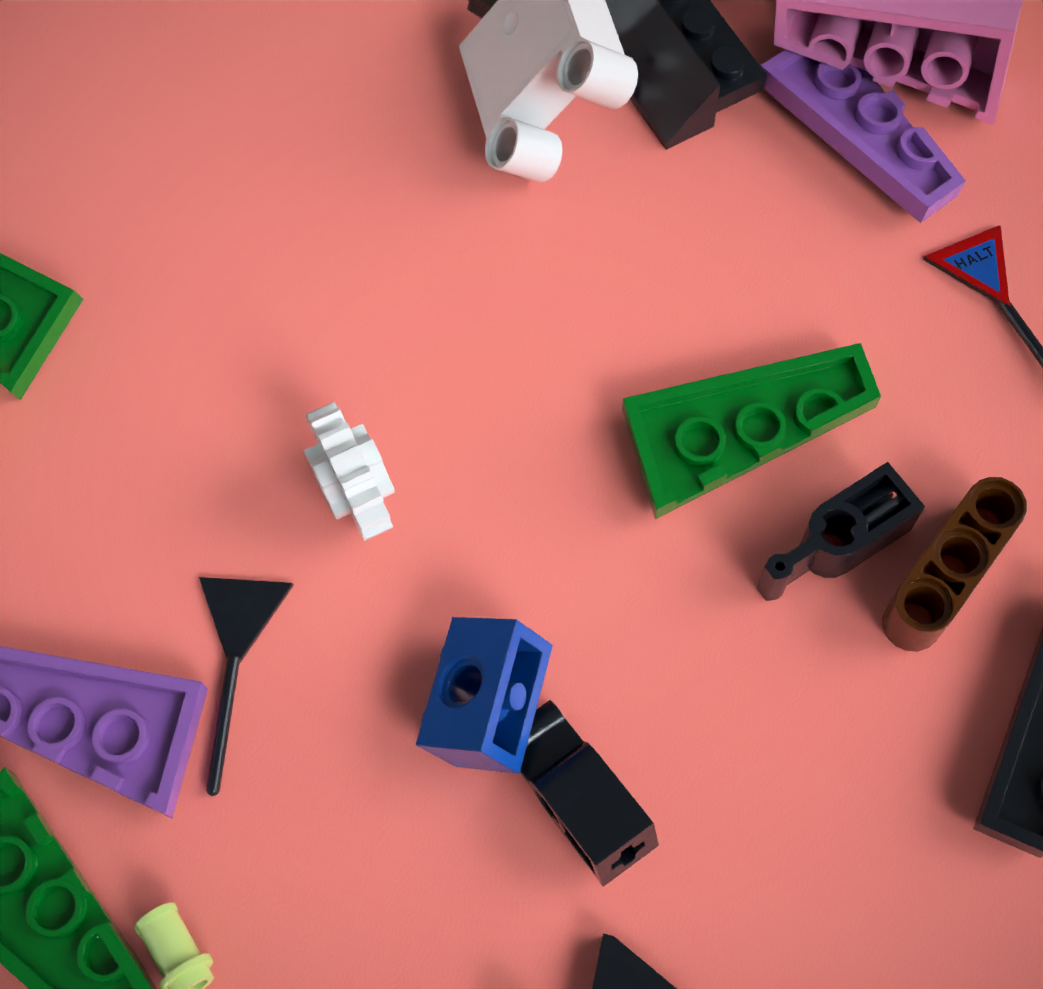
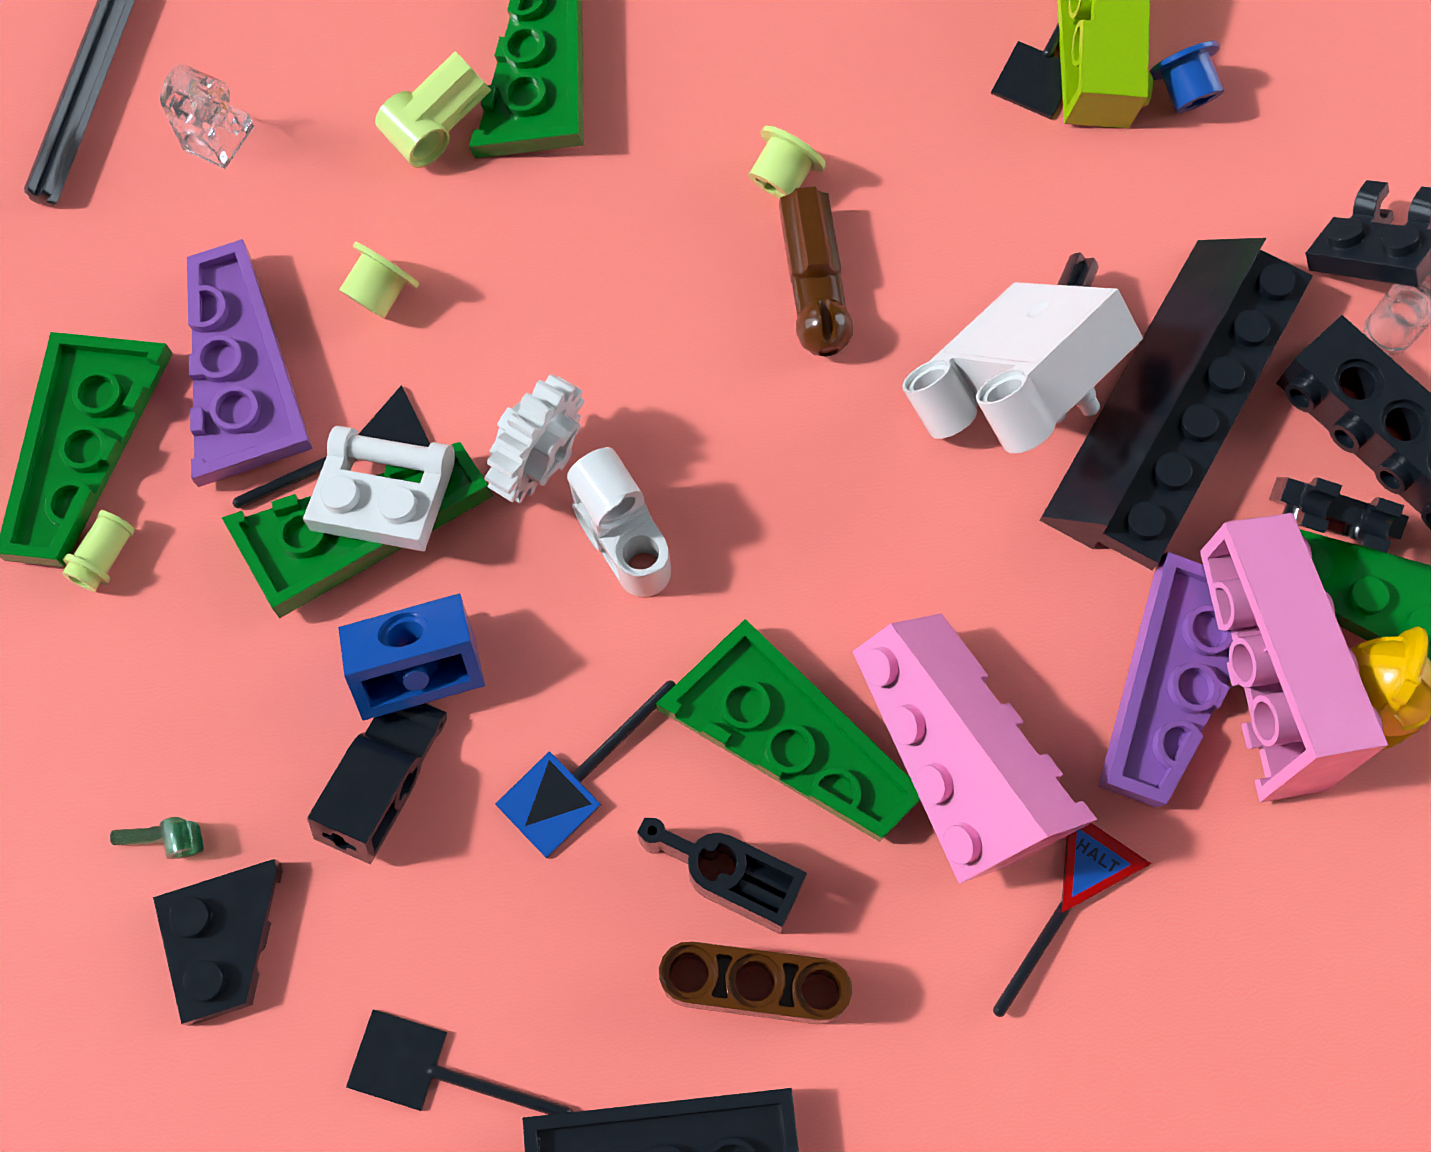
camera: 55 degrees right, 5 degrees up
(84, 537) = (375, 281): none -> yellowish green piece
(225, 150) = (784, 162): none -> yellowish green piece
(312, 702) = (303, 564): none -> green wing
(314, 650) = (379, 506): none -> white plate
(339, 182) = (815, 271): none -> reddish brown piece
(465, 452) = (618, 521): none -> white piece
(688, 653) = (551, 801): none -> piece
(851, 288) = (965, 749): none -> bright pink wedge
(860, 918) = (402, 1059): none -> black piece

